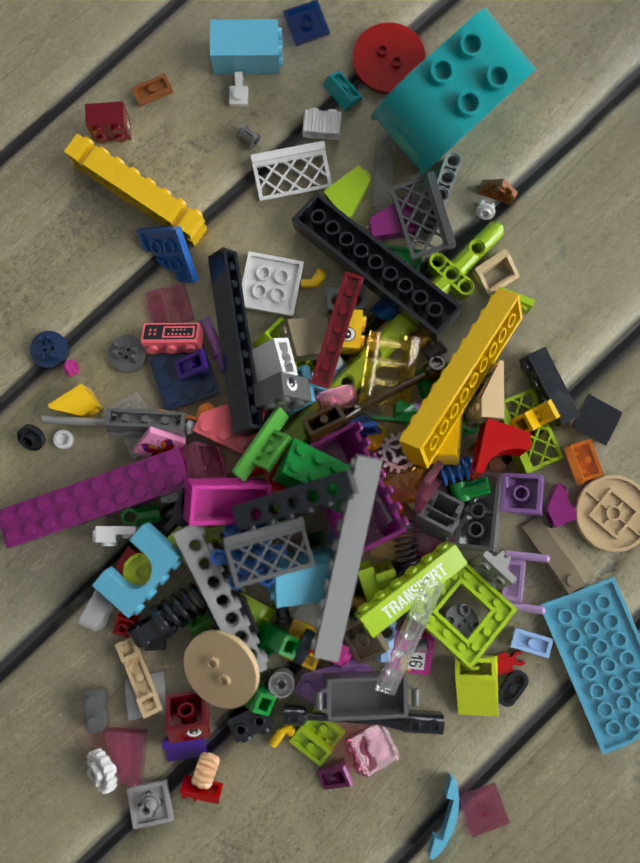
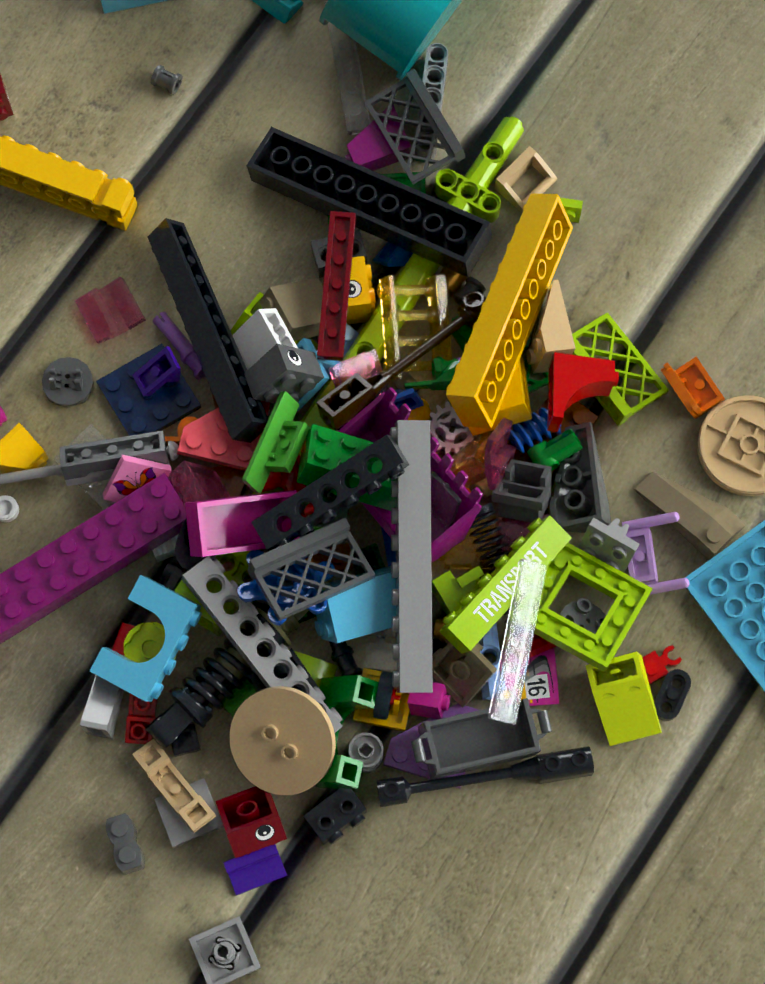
camera: 10 degrees left, 10 degrees down
(101, 771) = (150, 918): white gear -> none
(113, 534) = (97, 609): white plate -> none
(127, 753) = (181, 892): clear pink slope -> none
(143, 515) = (129, 579): green piece -> none
(152, 89) = (28, 48): dark orange plate -> none
(170, 249) = (97, 239): blue plate -> none
(172, 337) = (122, 346): coral brick -> none
(205, 770) = (290, 888): light nougat gear -> none
(209, 795) = (296, 918): red plate -> none
(238, 94) = (141, 30): white plate -> none
(271, 283) = (238, 253): white plate -> none
(280, 733) = (379, 821): yellow arm -> none
(286, 155) = (218, 94): white fence -> none
(315, 281) = (294, 238): yellow arm -> none
(317, 738) = (429, 818): lime slope -> none
(322, 124) = (258, 45): white brick -> none
(335, 775) = (464, 859): magenta slope -> none
(349, 191) = (313, 117): lime slope -> none
(371, 749) = (504, 813): clear pink plate -> none
(439, 841) = (625, 846): medium azure slope -> none
(483, 809) = (672, 862): clear pink plate -> none
(485, 211) = (494, 106): white plate -> none
(497, 189) = (503, 78): dark orange plate -> none
(522, 494) = (626, 444): medium lavender slope -> none
(531, 642) = (682, 631): light blue plate -> none
(536, 417) = (619, 342): yellow brick -> none
(548, 384) = (627, 305): black brick -> none
(557, 506) = (676, 453): magenta slope -> none
(597, 419) = (699, 333): black slope -> none

